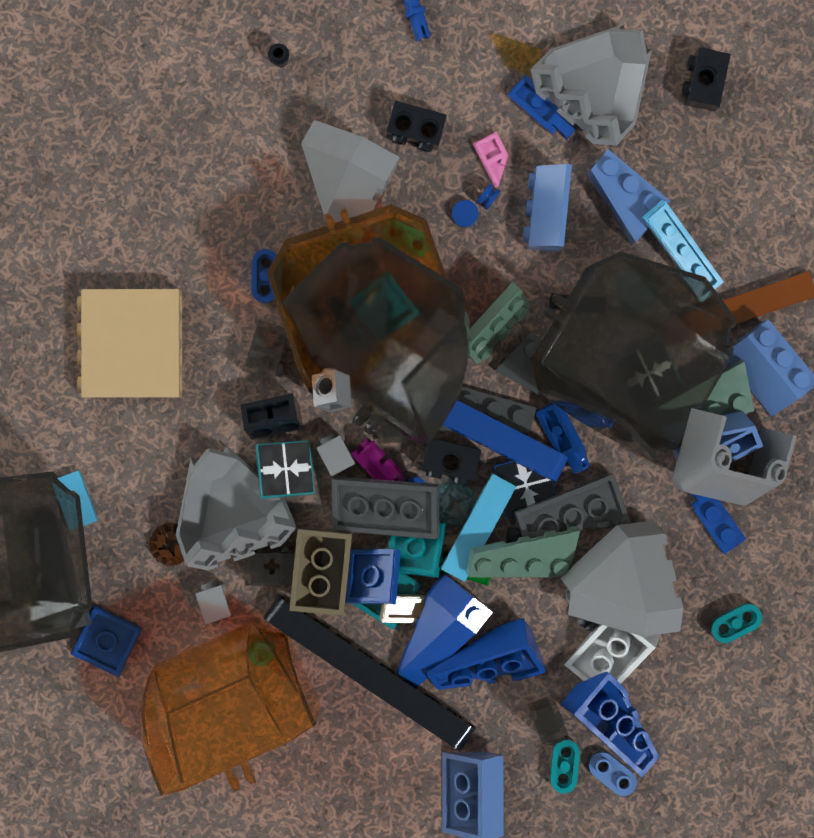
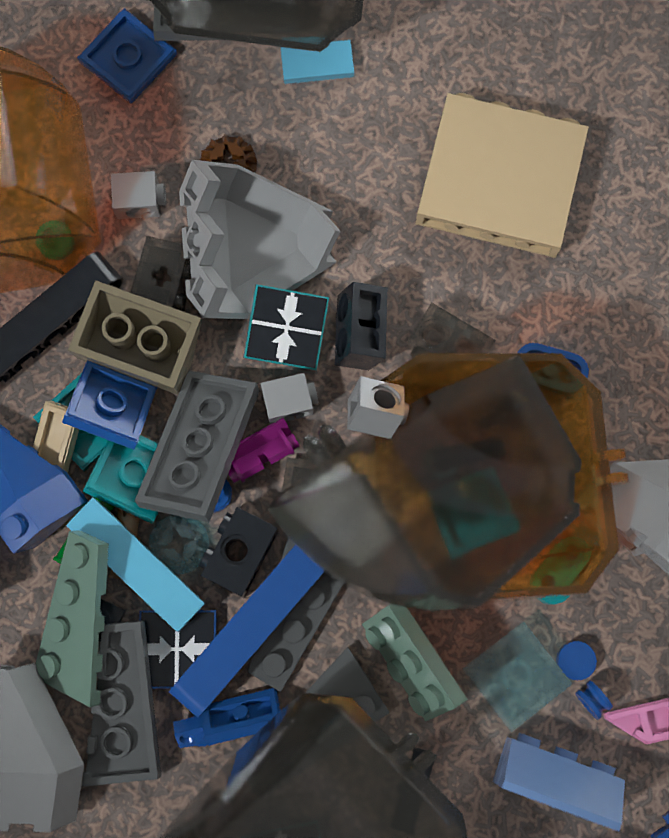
camera: 105 degrees right, 10 degrees down
(485, 251) = (517, 676): none -> clear light blue plate

